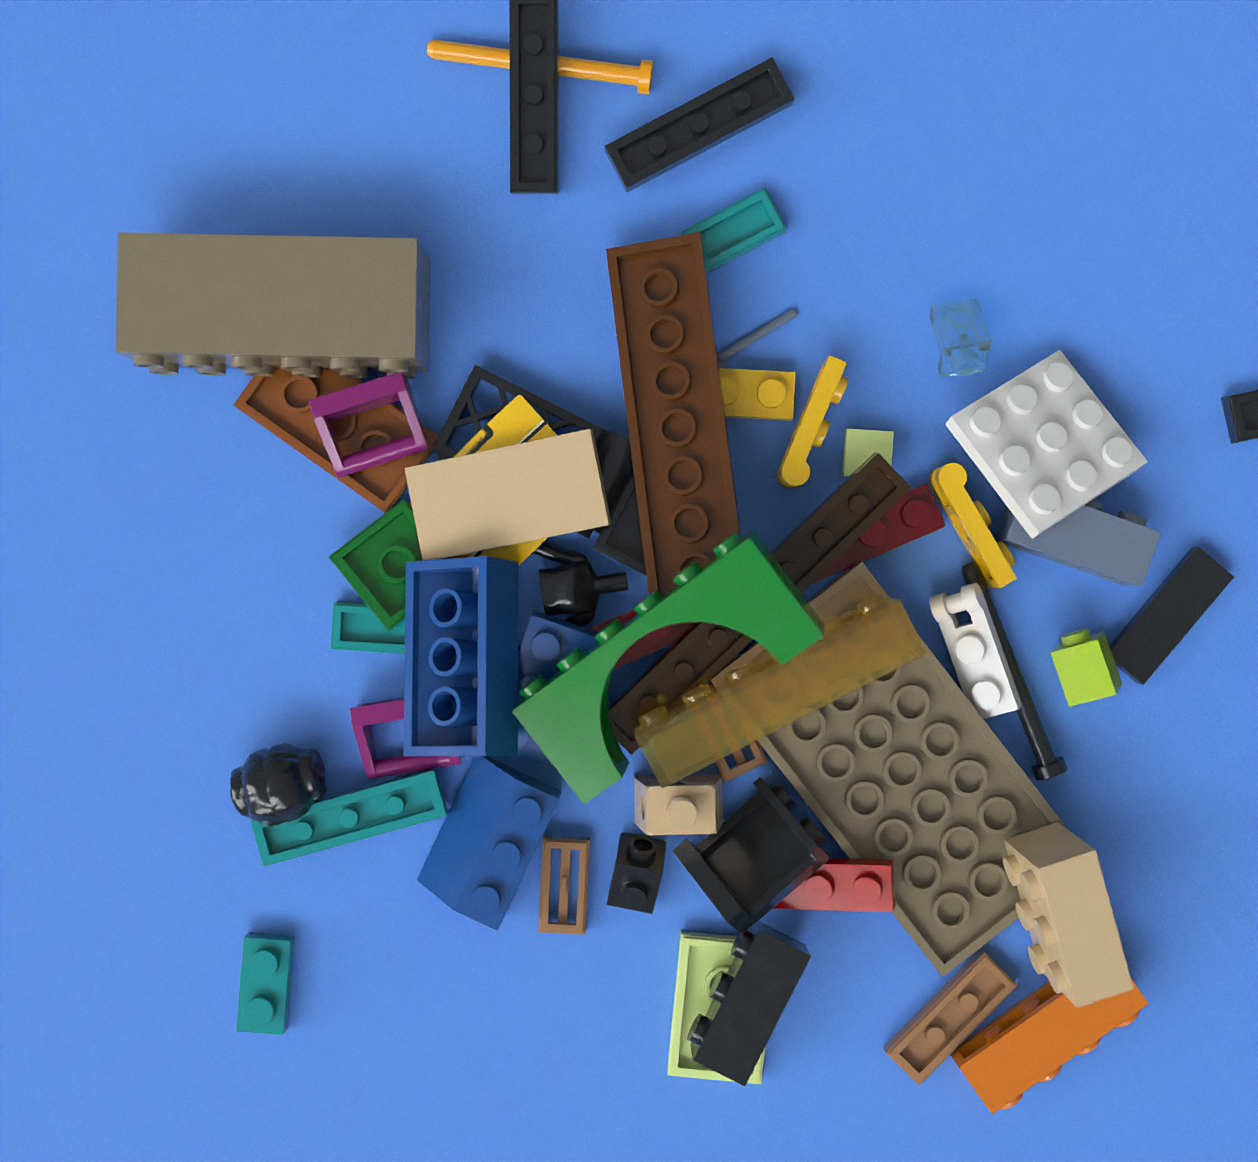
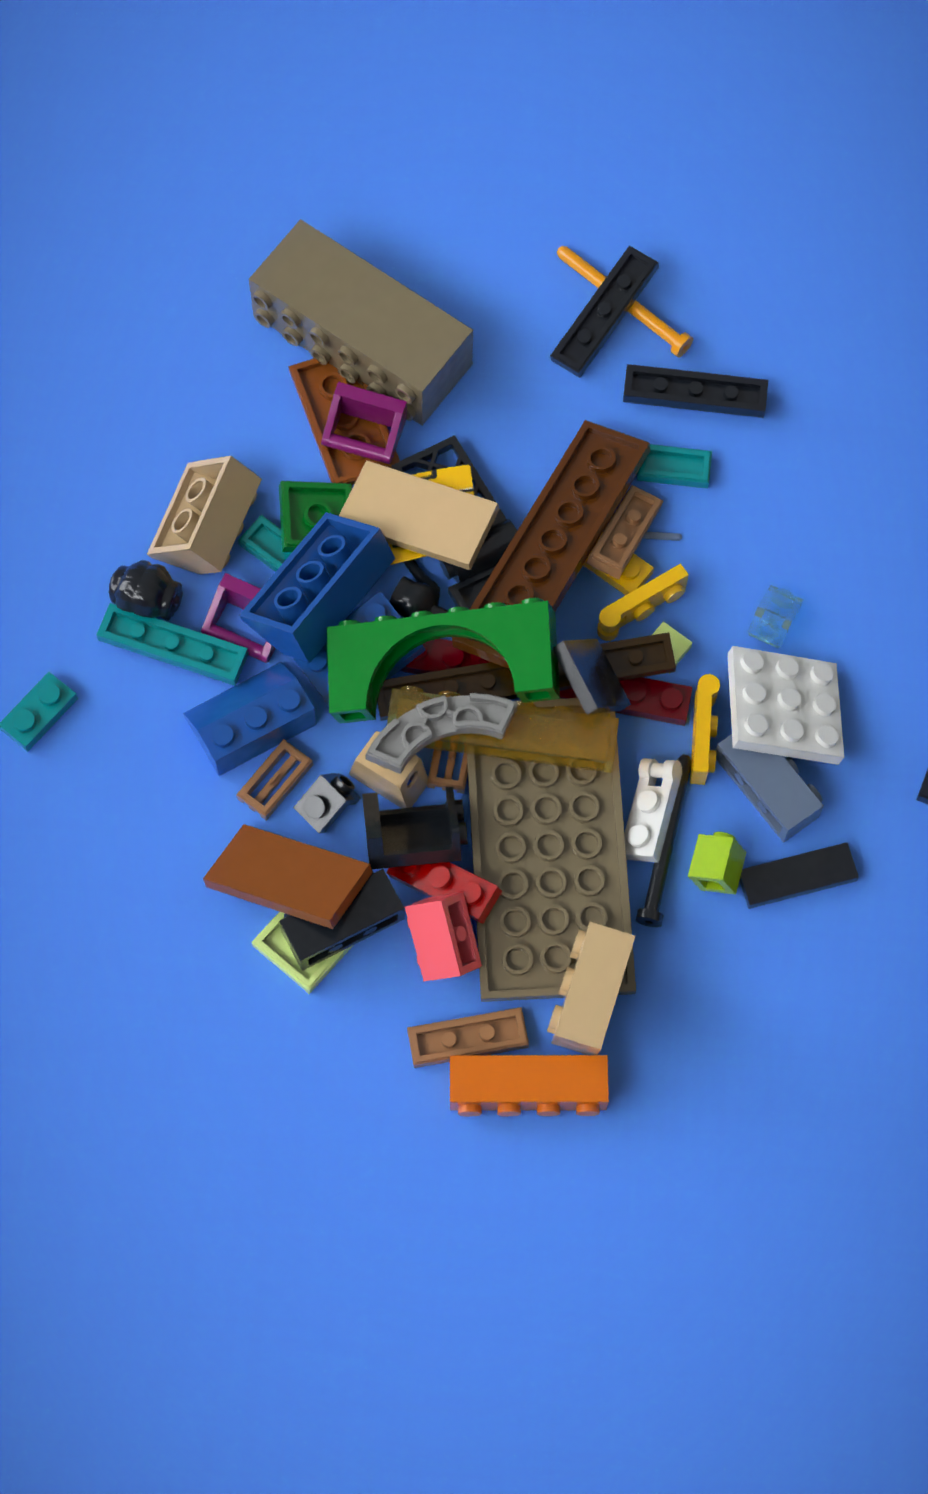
camera: 35 degrees right, 20 degrees down
(276, 648) = (205, 515): none -> tan slope
(665, 1000) = (288, 876): none -> dark orange tile
(711, 744) = (436, 720): none -> light grey tile
(741, 356) = (624, 532): none -> medium nougat tile
(841, 575) = (591, 676): none -> black tile
(867, 951) = (443, 936): none -> coral brick

